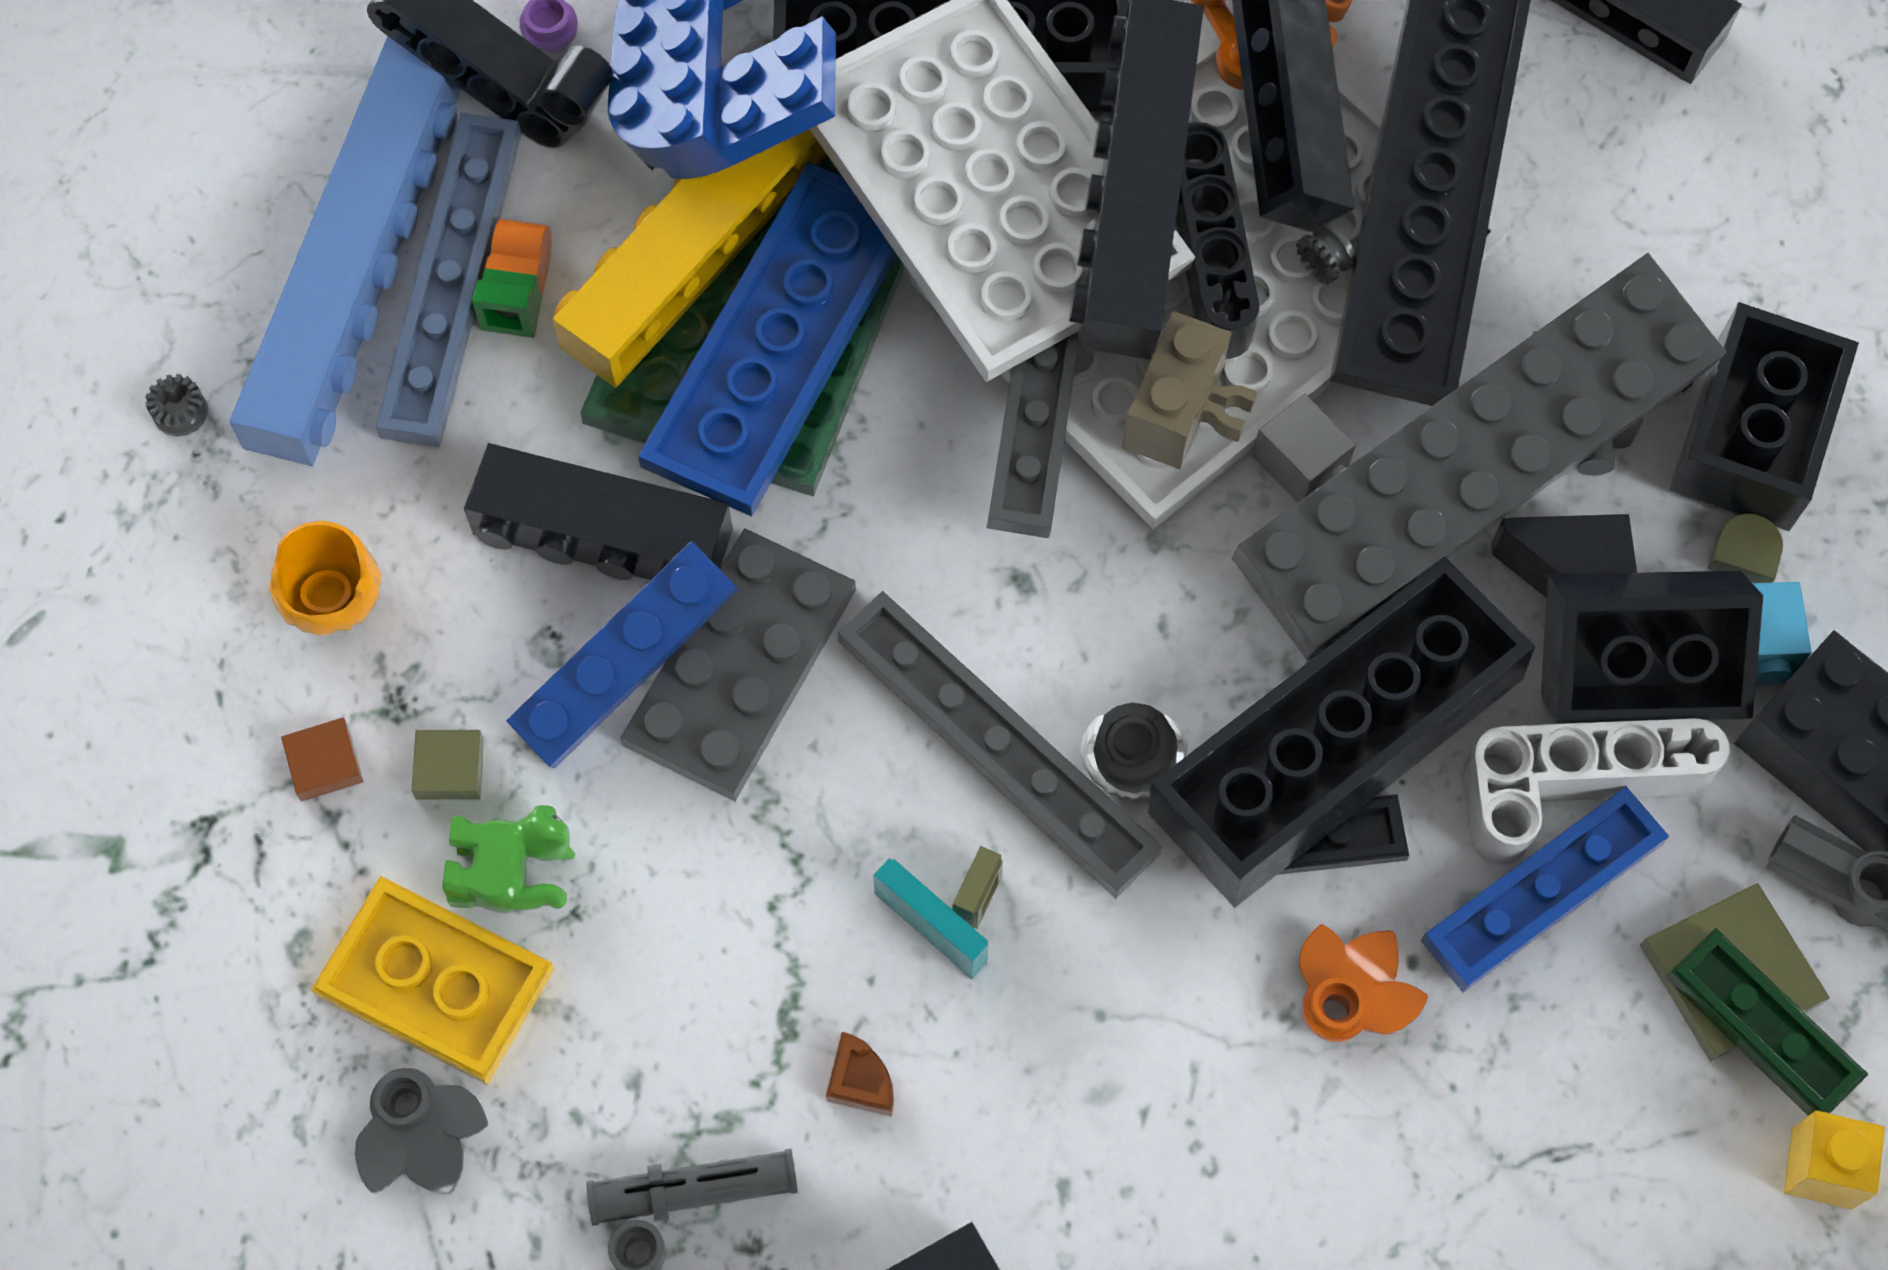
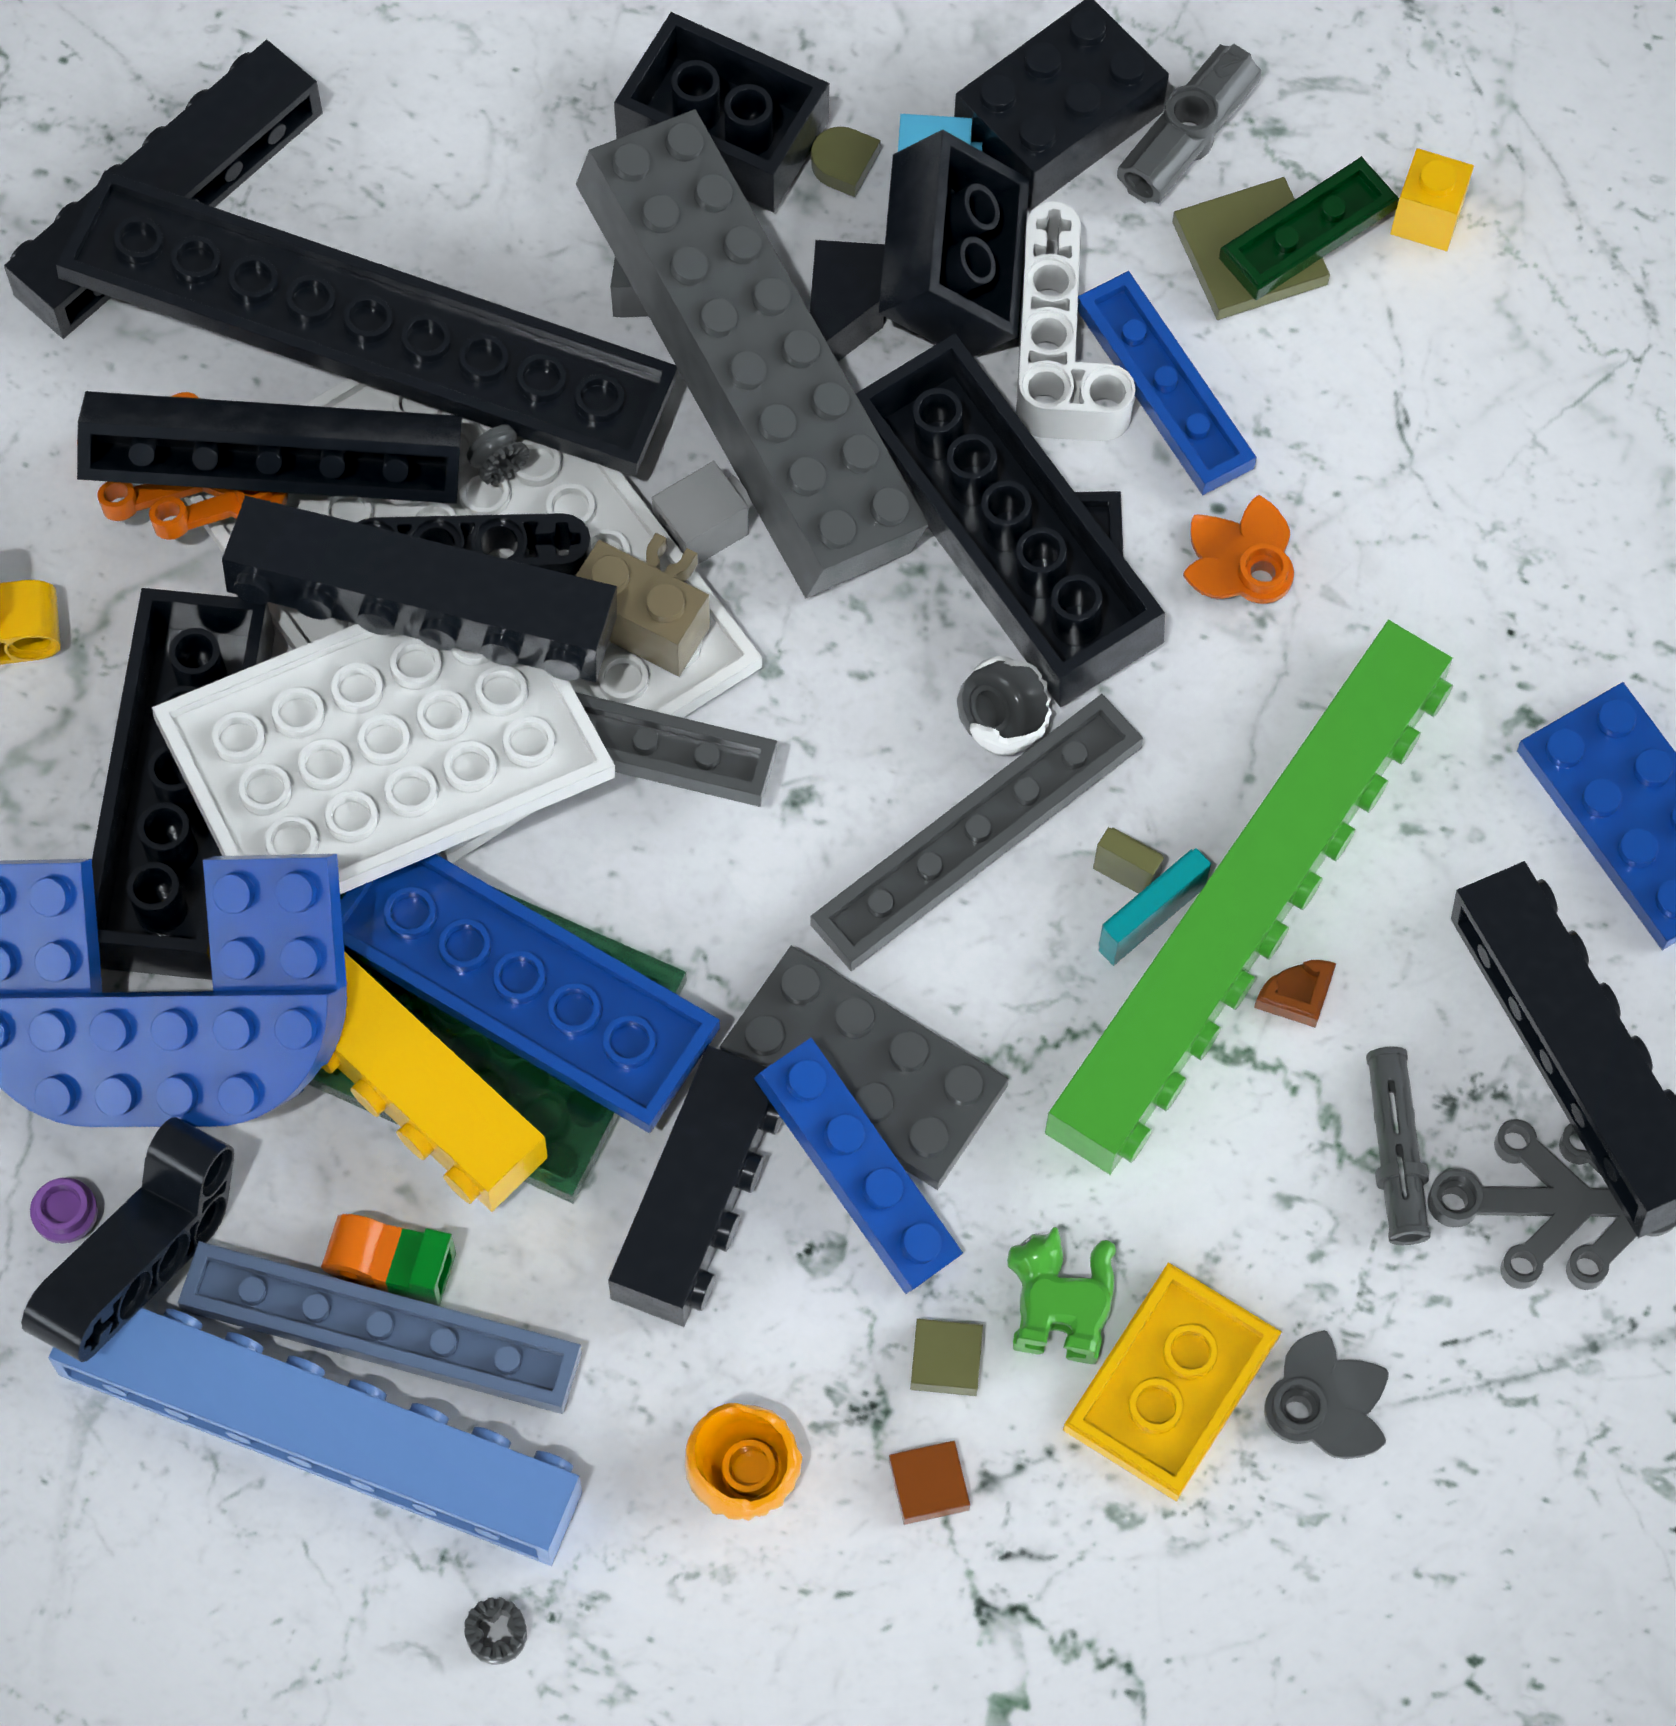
camera: 85 degrees left, 0 degrees up
(964, 1020) = (1248, 898): none -> bright green brick

